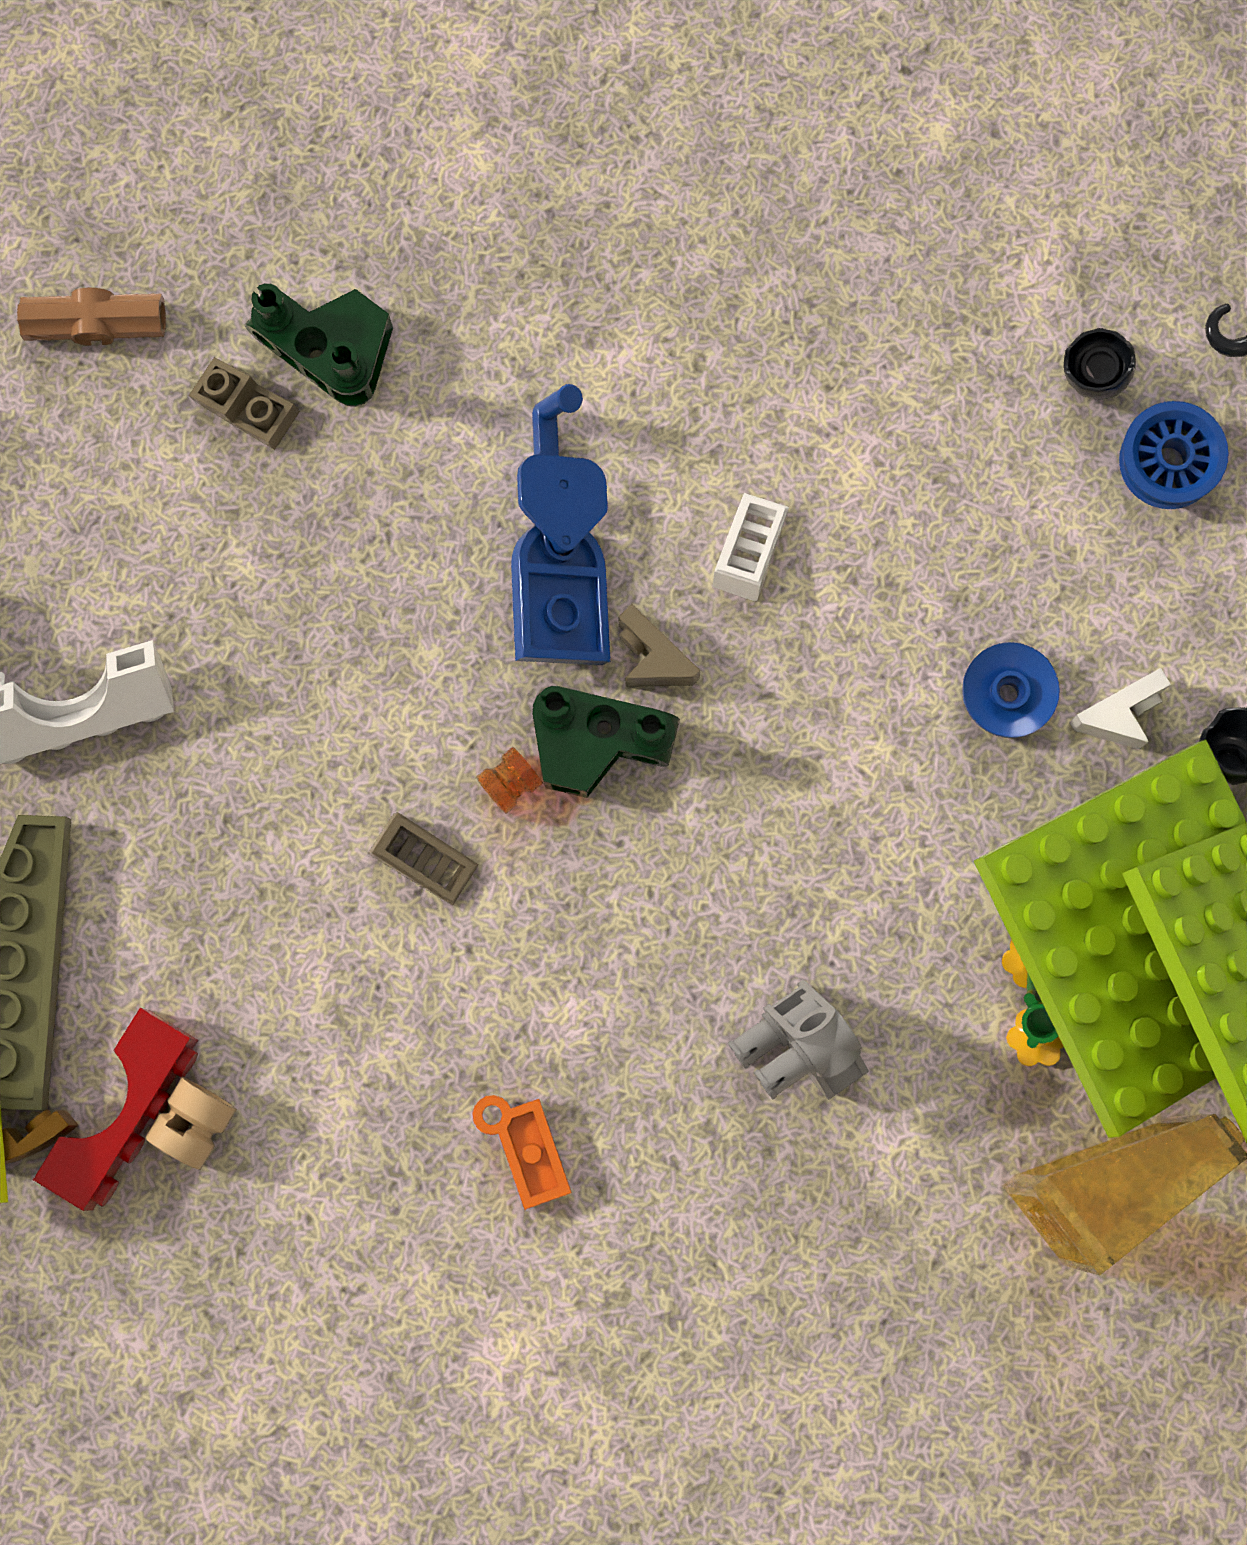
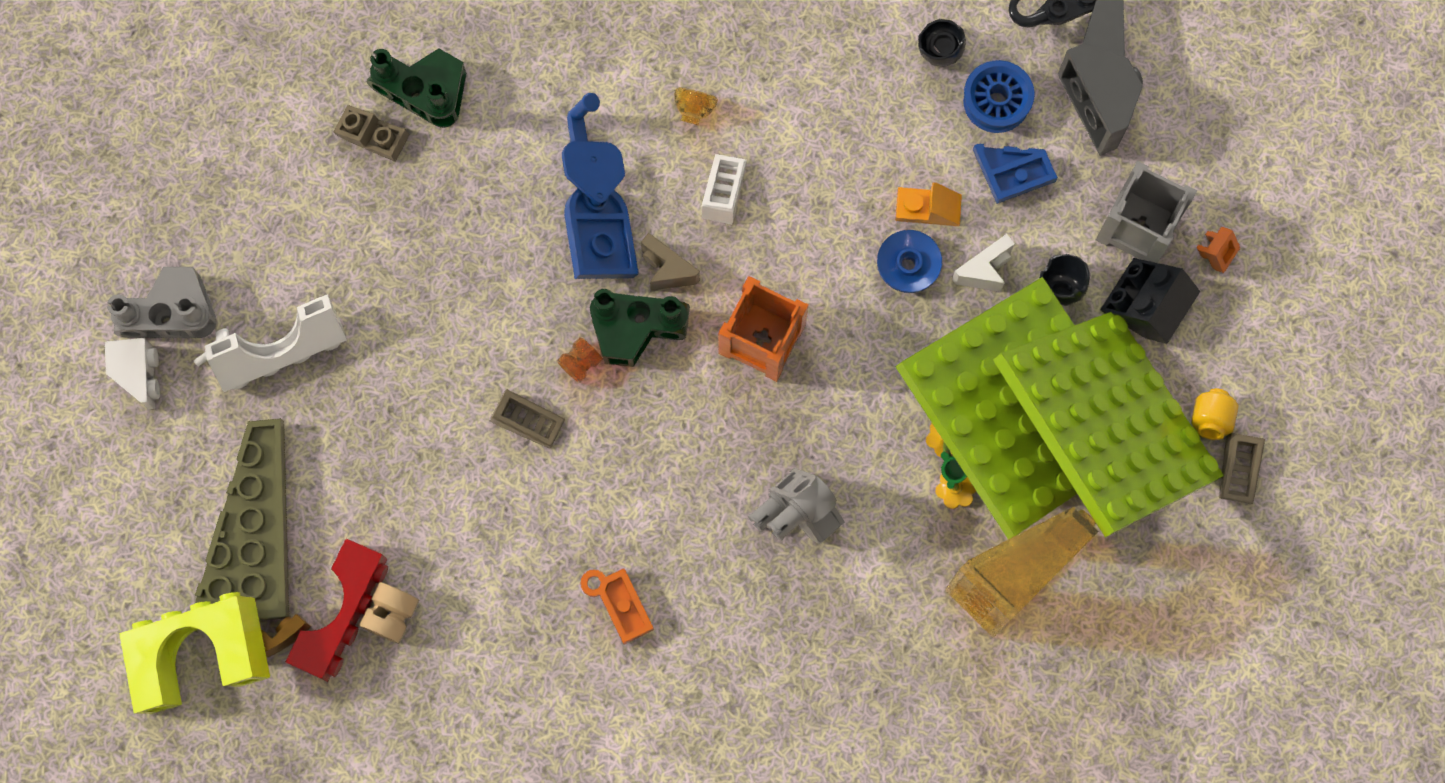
camera: 10 degrees left, 5 degrees down
(91, 316) = (261, 87): medium nougat piece -> none
(721, 415) = (694, 104): none -> clear yellow brick
(776, 742) = (759, 311): none -> orange container
(1049, 609) = (931, 206): none -> light orange slope
(1182, 571) = (1014, 170): none -> blue wing

